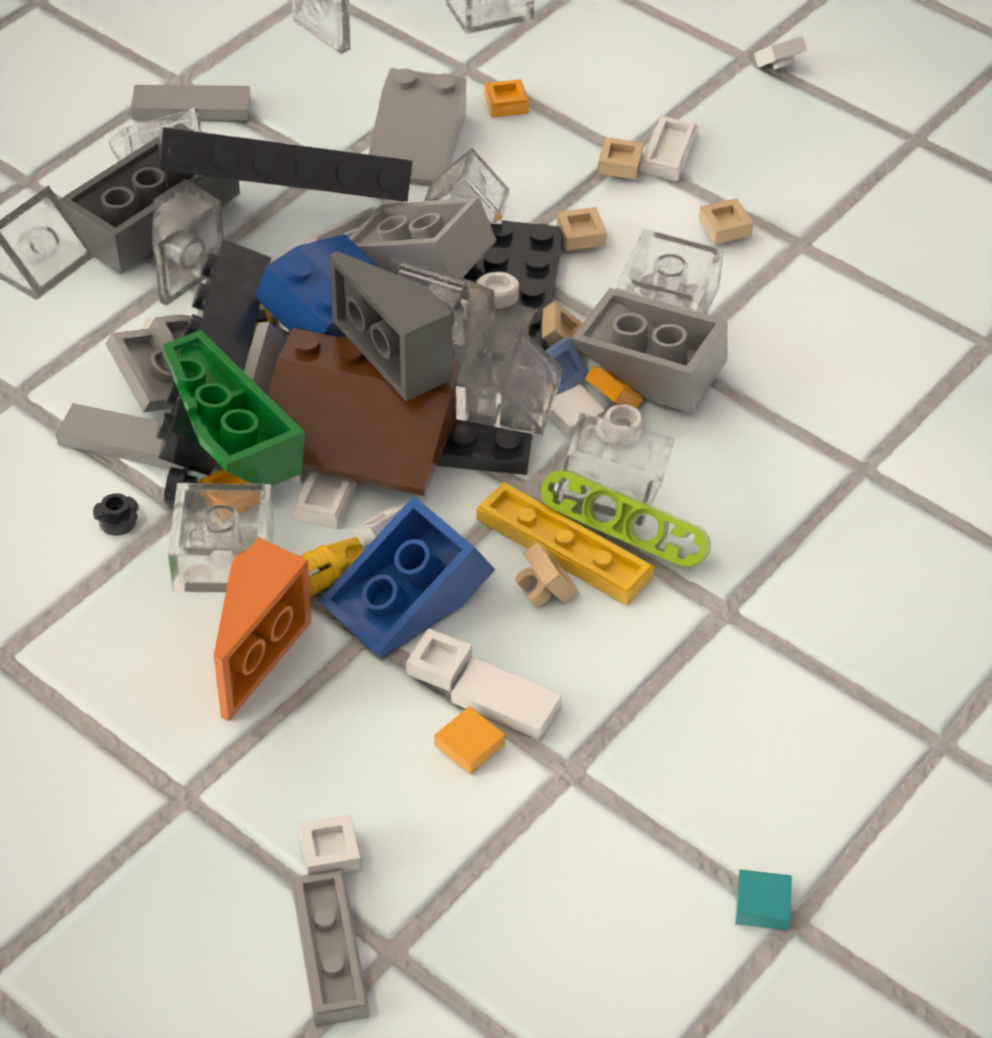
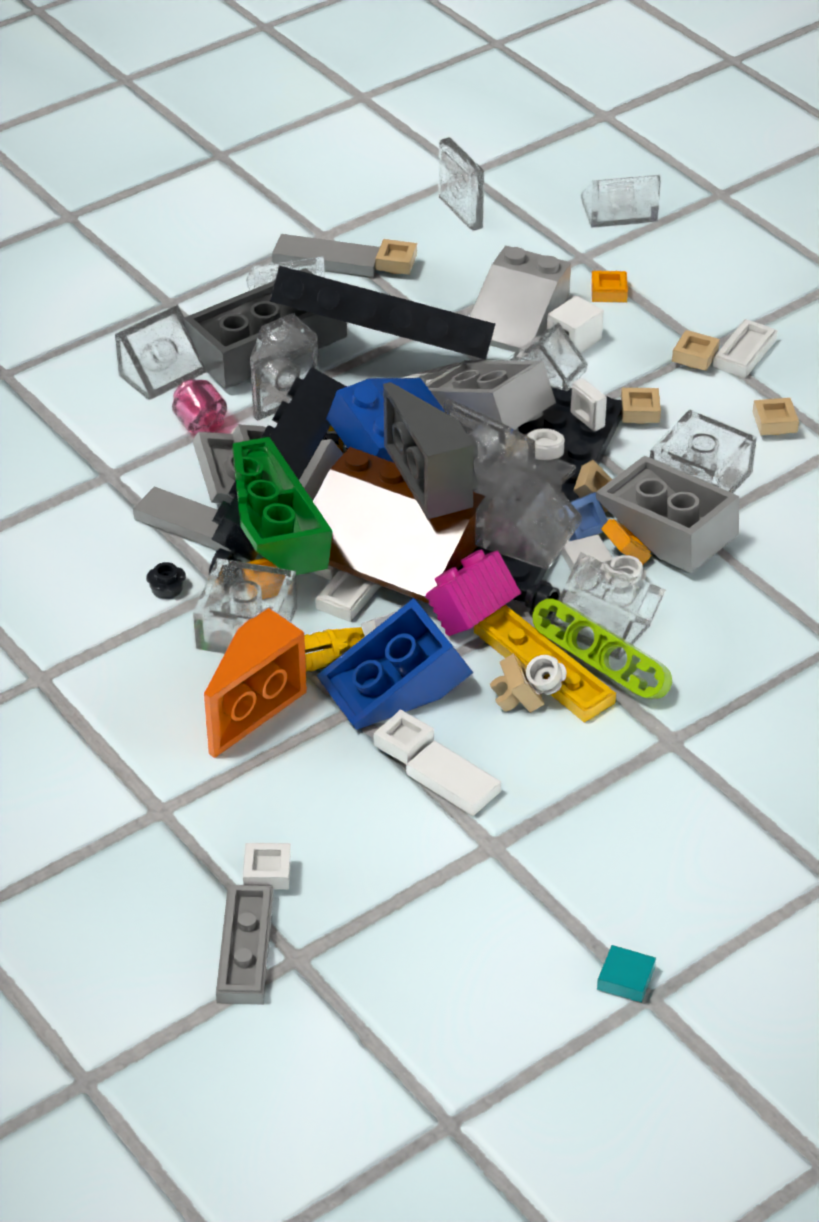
camera: 15 degrees right, 5 degrees down
(99, 300) = (199, 406): none -> clear pink head
(269, 94) = (396, 256): none -> tan plate
(468, 475) = (473, 592): none -> dark pink brick
(469, 739) = (411, 805): light orange tile -> none
(491, 140) = (580, 321): none -> white brick
(532, 237) = (588, 404): none -> white tile
(540, 466) = (540, 592): none -> black plate
(572, 549) = (539, 668): none -> white plate

